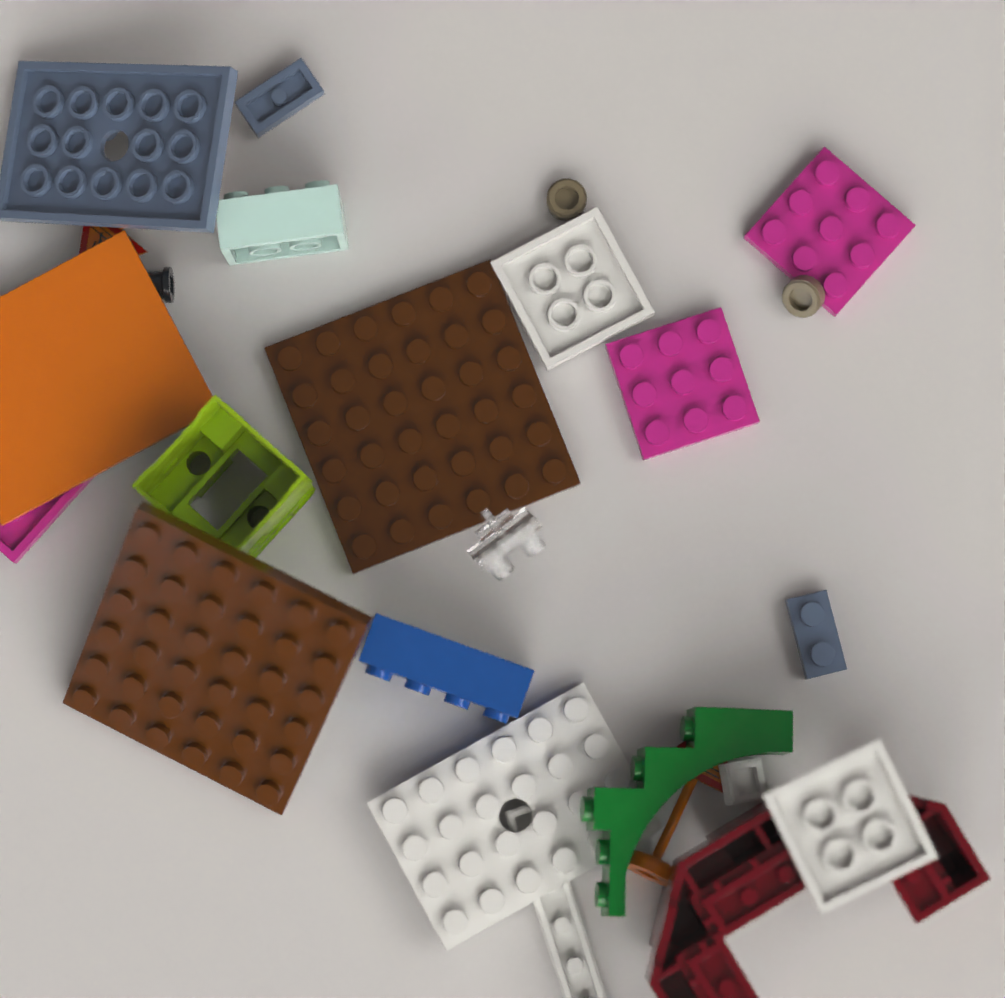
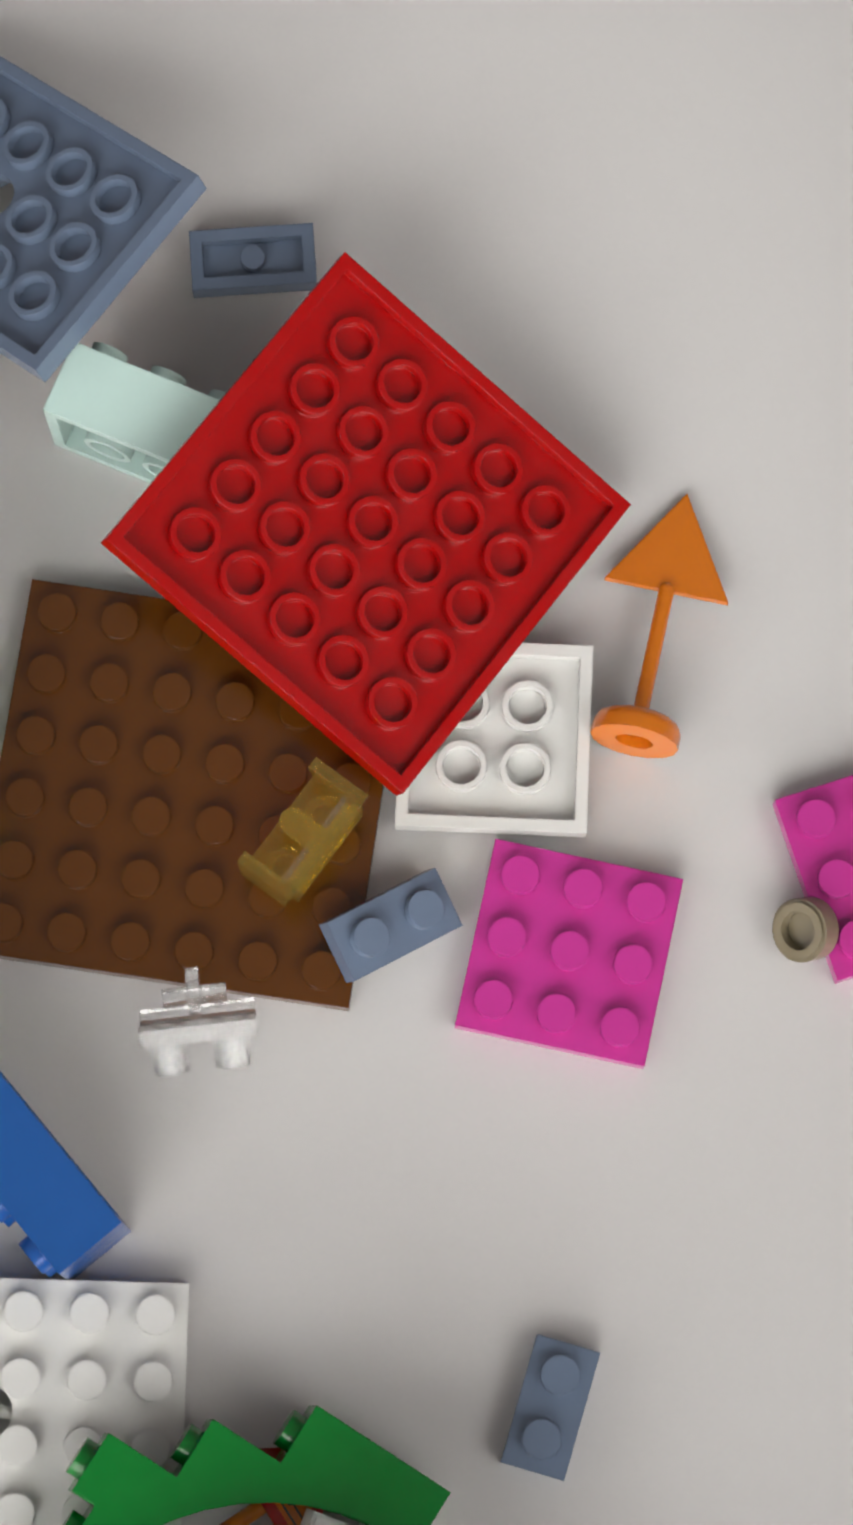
camera: 30 degrees right, 5 degrees down
(437, 209) = (367, 524): none -> red plate
(504, 401) = (305, 835): none -> clear yellow window
(566, 199) = (565, 619): dark tan tile -> none
(577, 424) = (390, 925): none -> sand blue plate
(612, 135) = (673, 562): none -> orange piece

